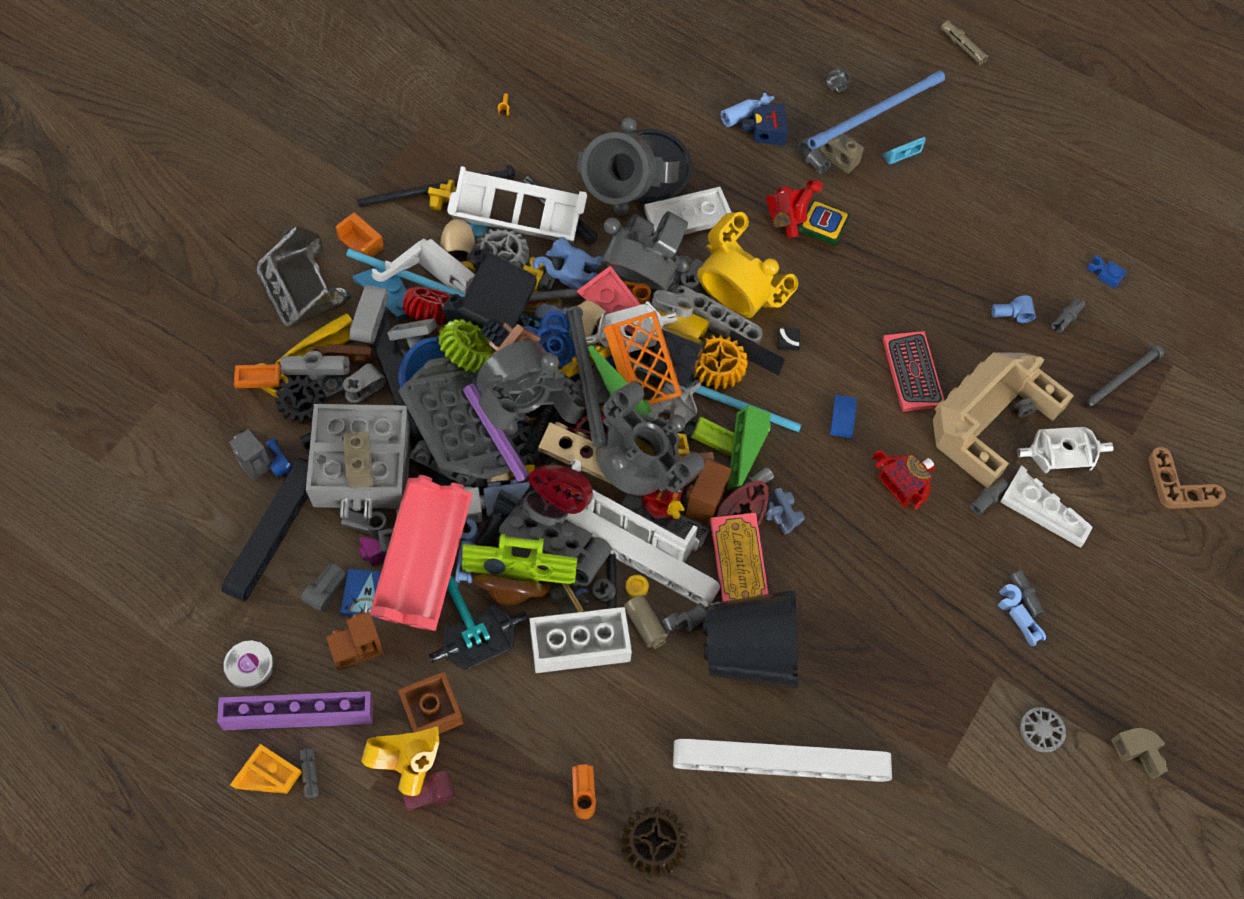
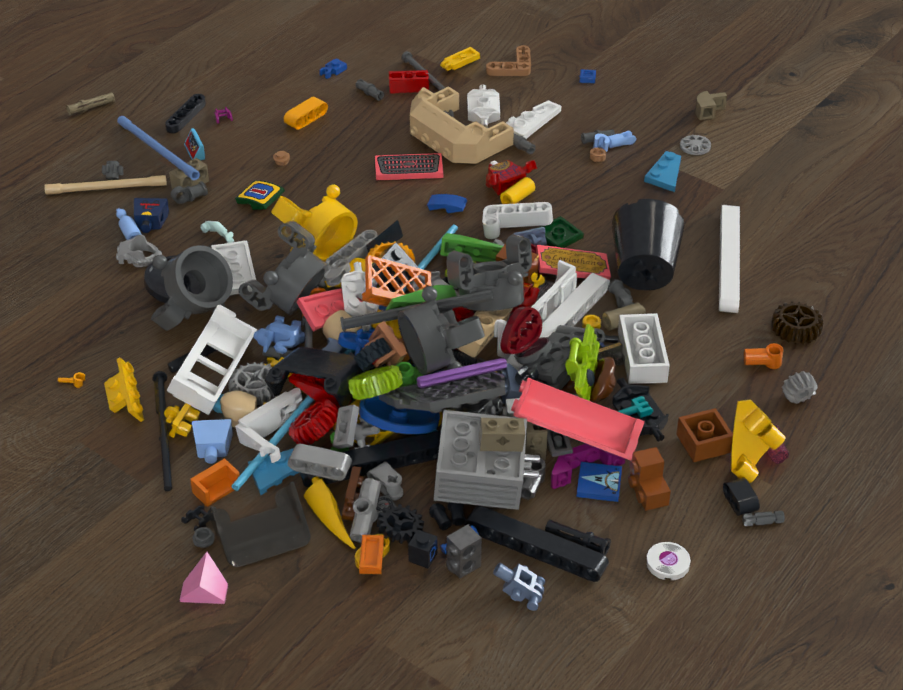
camera: 80 degrees left, 20 degrees down
(211, 511) = (521, 584): none -> sand blue piece
(230, 247) = (204, 583): none -> bright pink slope
(264, 421) = (422, 549): none -> black brick
(266, 773) = (766, 543): light orange wing -> none
(276, 579) = (587, 541): none -> black pin
(295, 710) = (714, 520): medium lavender brick -> none
(320, 594) = (600, 510): dark grey piece -> none
(328, 231) = (195, 514): none -> black piece
(338, 747) = (741, 496): none -> black beam
(417, 224) = (212, 438): none -> light blue torso
(487, 147) = (122, 391): none -> yellow bracket
(519, 830) = (799, 387): none -> light grey gear
(705, 115) = (133, 250): none -> light grey piece
(758, 182) = (215, 226): none -> light aqua arm
(788, 339) = (371, 224): black tile -> none
(790, 207) = (248, 203): red torso -> none
(803, 43) = (110, 184): none -> tan piece
(806, 547) = (561, 233): none -> dark green tile
(810, 469) = (515, 216): none -> white beam
(878, 495) = (518, 191): none -> yellow brick
(901, 236) = (281, 158): none -> medium nougat plate
(968, 684) = (665, 171): none -> dark azure wing
(970, 129) = (194, 104): none -> black beam
(972, 164) = (226, 111): none -> magenta piece
(988, 595) = (597, 154): none -> medium nougat tile
(995, 250) = (305, 113): none -> light orange beam
(1021, 309) = (362, 109): medium blue pin -> none
(1094, 356) = (408, 81): none -> red piece
(1167, 415) = (460, 59): none -> yellow hinge
(1177, 582) = (587, 76): none -> blue tile

